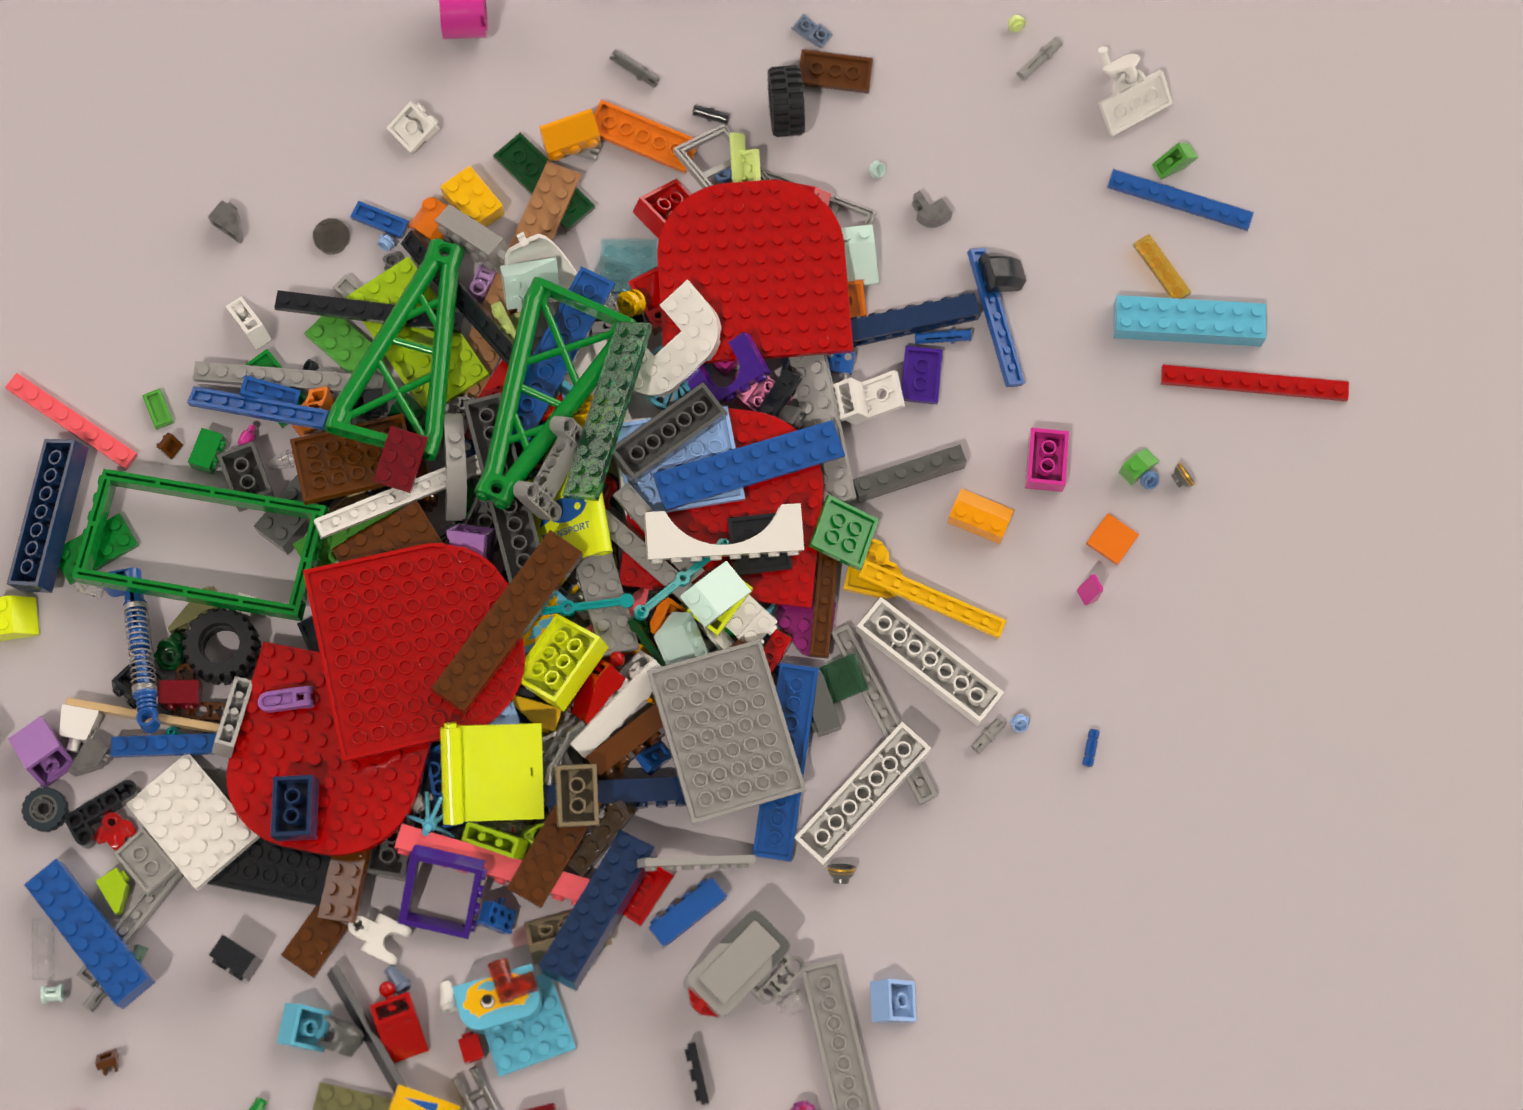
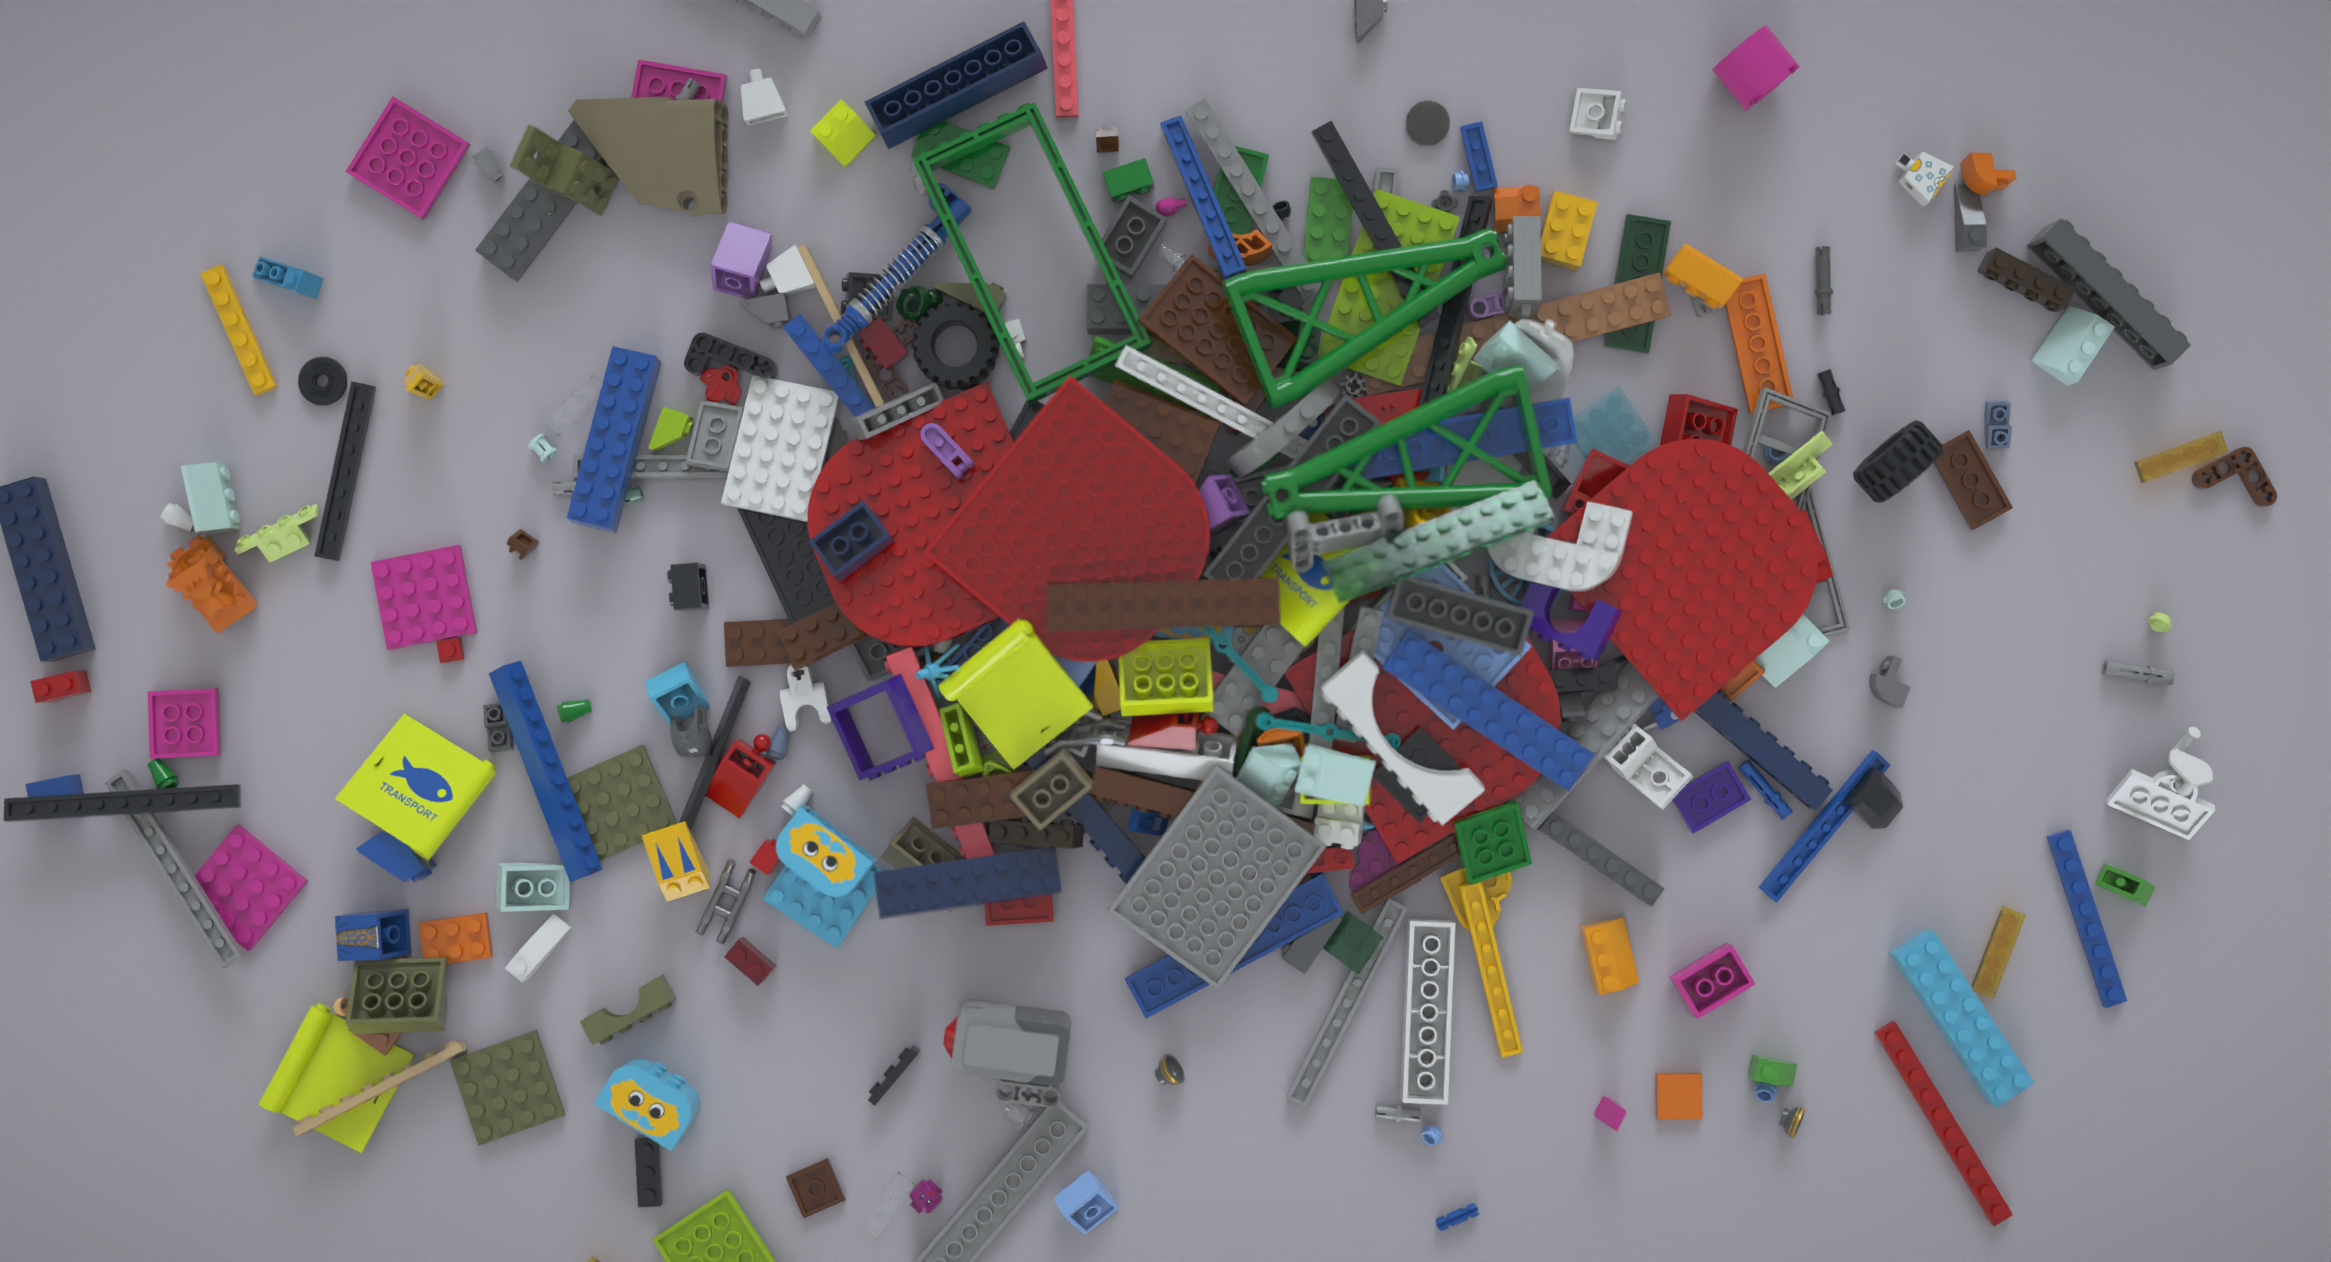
camera: 55 degrees right, 15 degrees up
(33, 805) = (680, 306): black wheel -> none
(158, 409) = (1135, 99): bright green tile -> none
(249, 323) = (1281, 115): white slope -> none
(267, 390) = (1226, 194): blue plate -> none
(400, 459) = (1245, 379): dark red plate -> none
(497, 916) = (898, 791): blue piece -> none
(510, 987) = (836, 858): clear red brick -> none
(629, 303) = (1570, 467): yellow wheel -> none
(688, 863) = (1071, 932): light grey plate -> none
(688, 912) = (1029, 958): blue brick -> none
(863, 794) = (1254, 1042): white brick -> none

